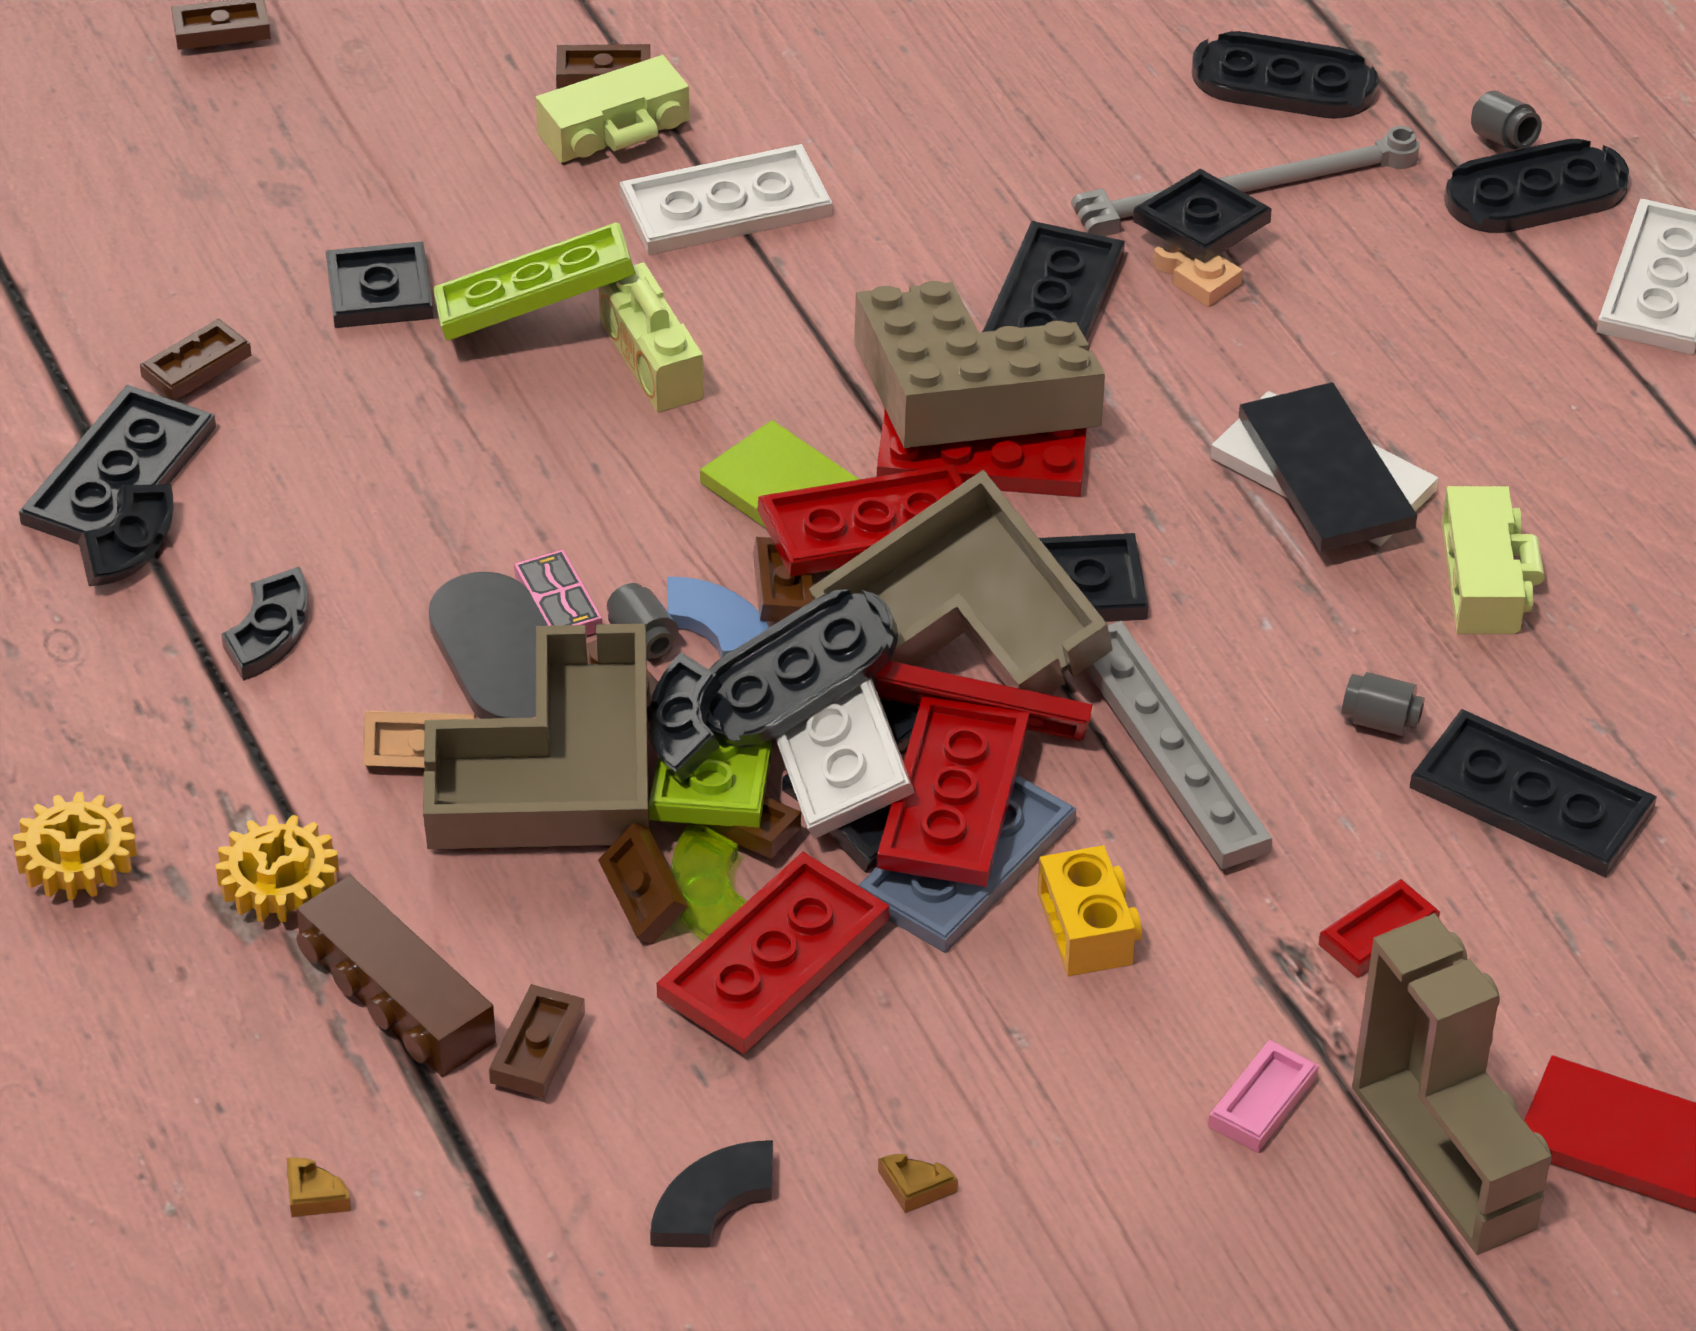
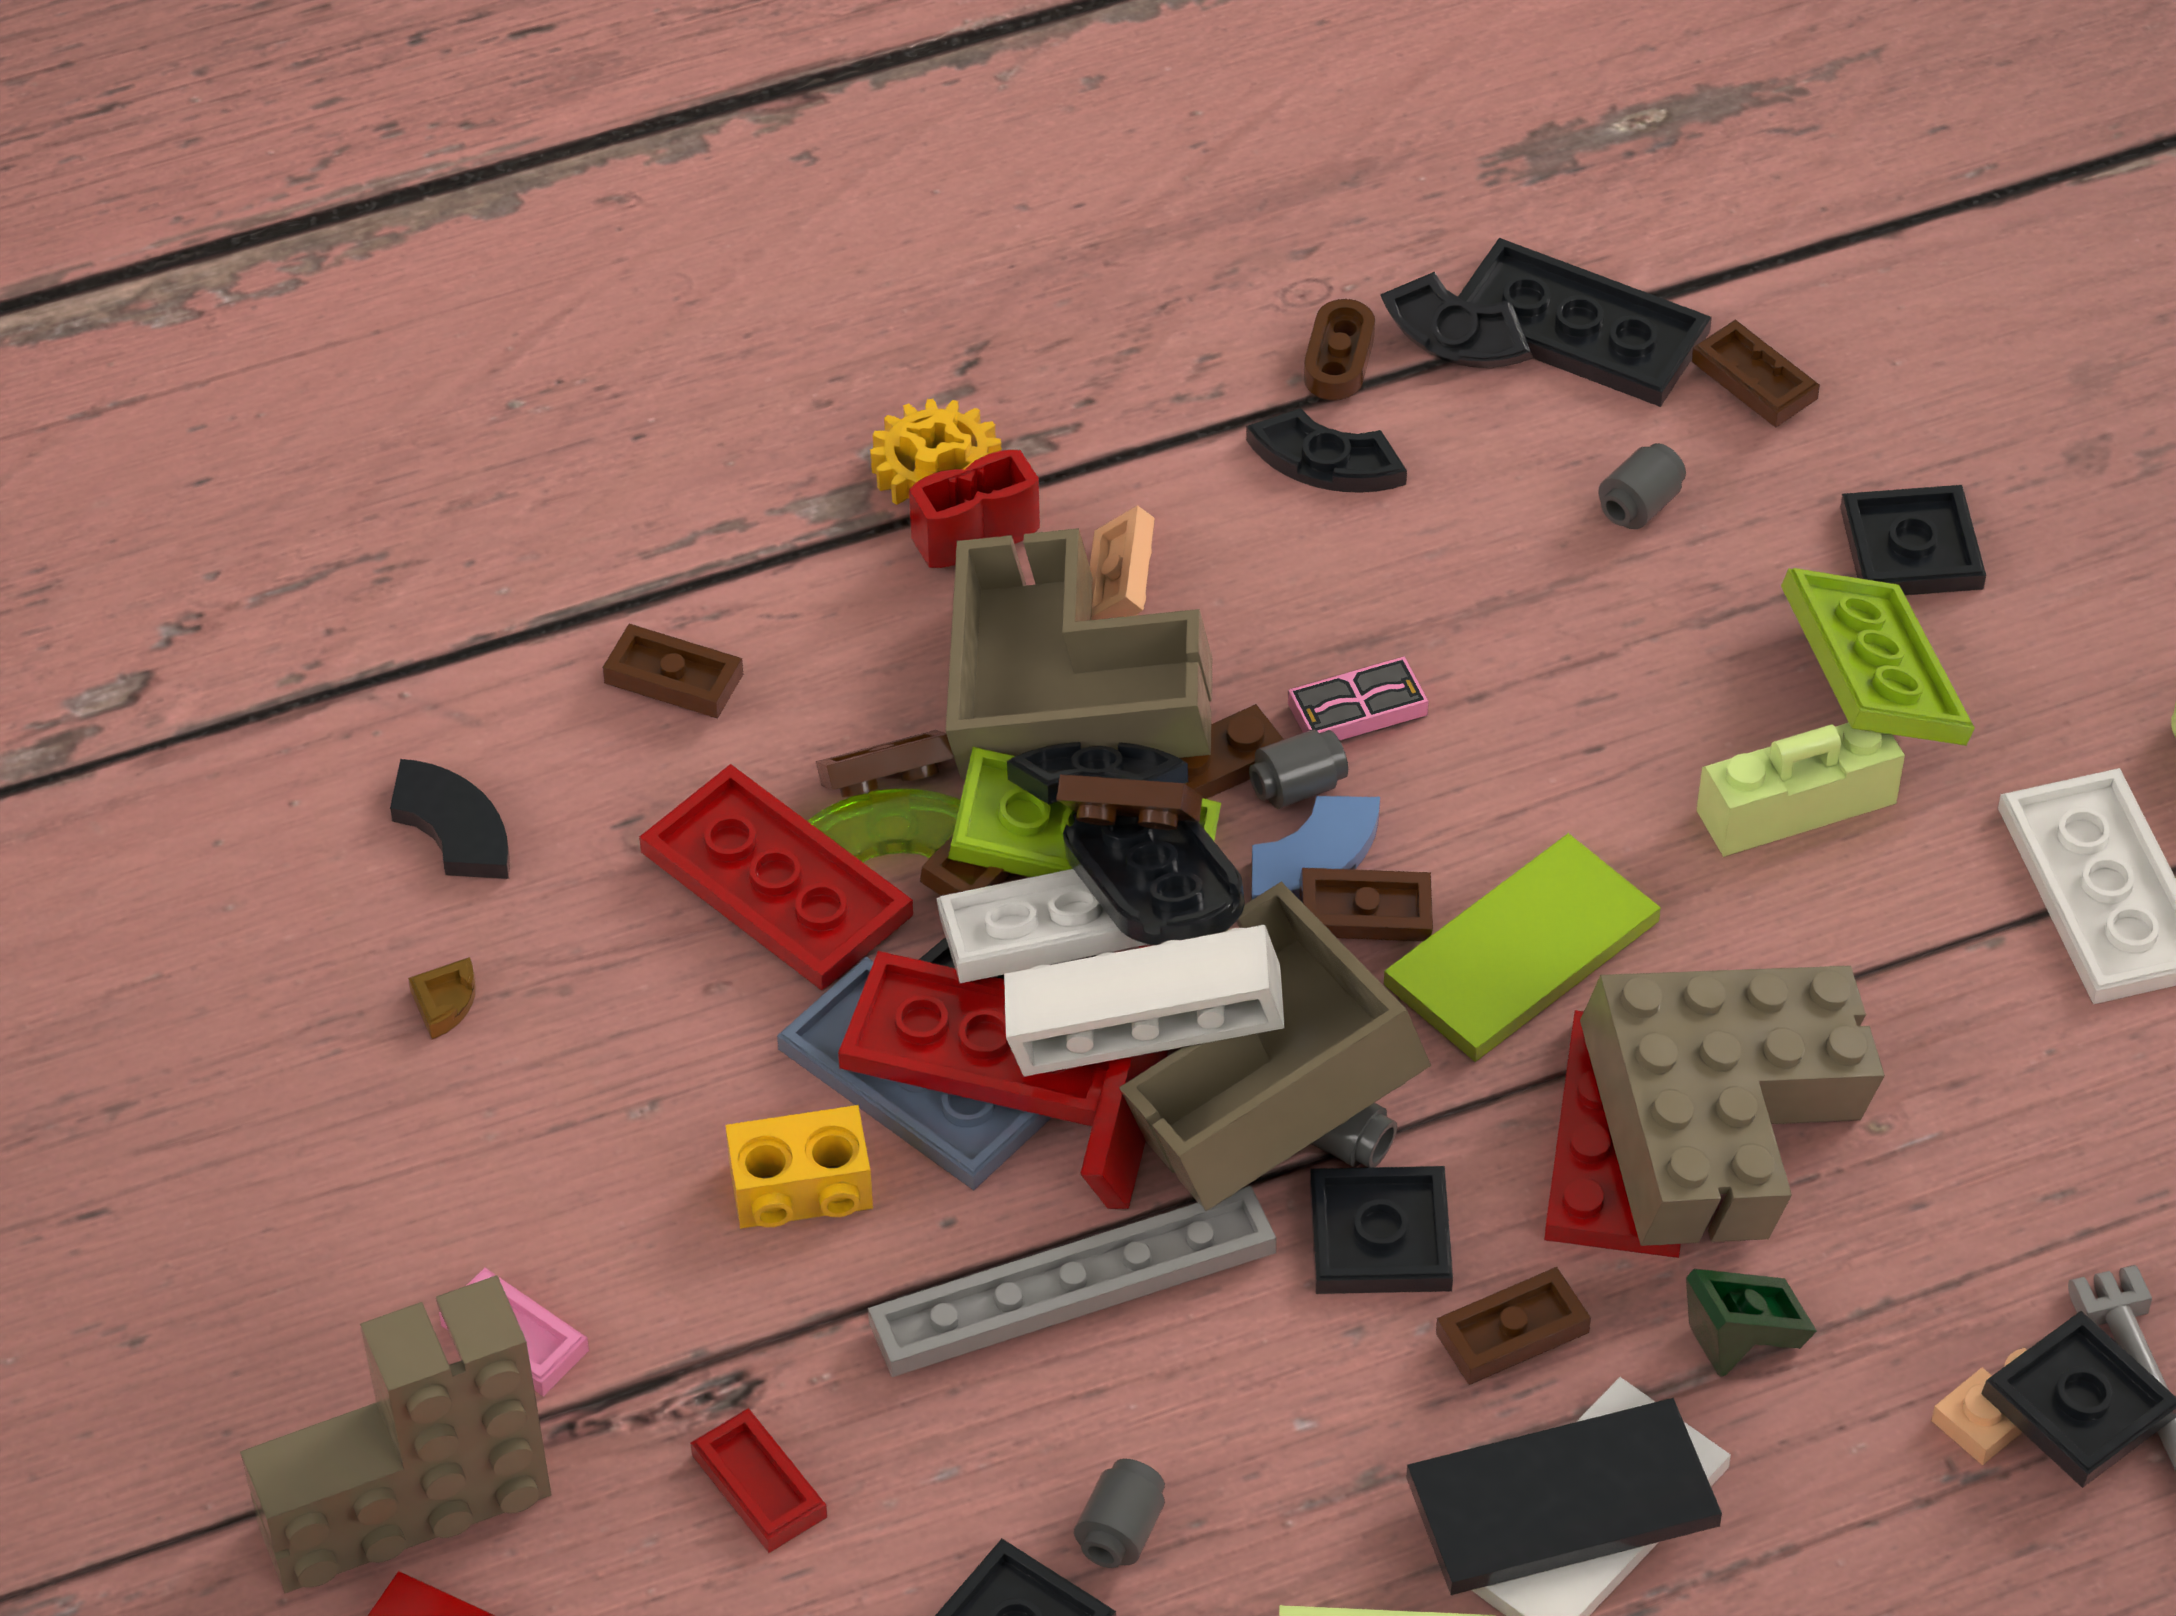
camera: 95 degrees right, 5 degrees up
(75, 845) = (983, 298): yellow gear -> none
(152, 608) = (1339, 349): none -> reddish brown plate
(314, 1189) = (515, 503): pearl gold tile -> none
(327, 422) = (1642, 486): none -> dark grey brick
(359, 825) = (983, 501): none -> red brick
(395, 976) = (773, 551): reddish brown brick -> none
(489, 641) = (1292, 641): tile -> none
(744, 656) = (1154, 802): none -> reddish brown plate
(838, 521) = (1463, 989): red tile -> none
(956, 649) = (1143, 1000): none -> white brick
(1057, 278) = (1926, 1230): black tile -> none
(1162, 377) = (1742, 1310): none -> dark green slope
(1175, 499) = (1513, 1325): none -> reddish brown plate

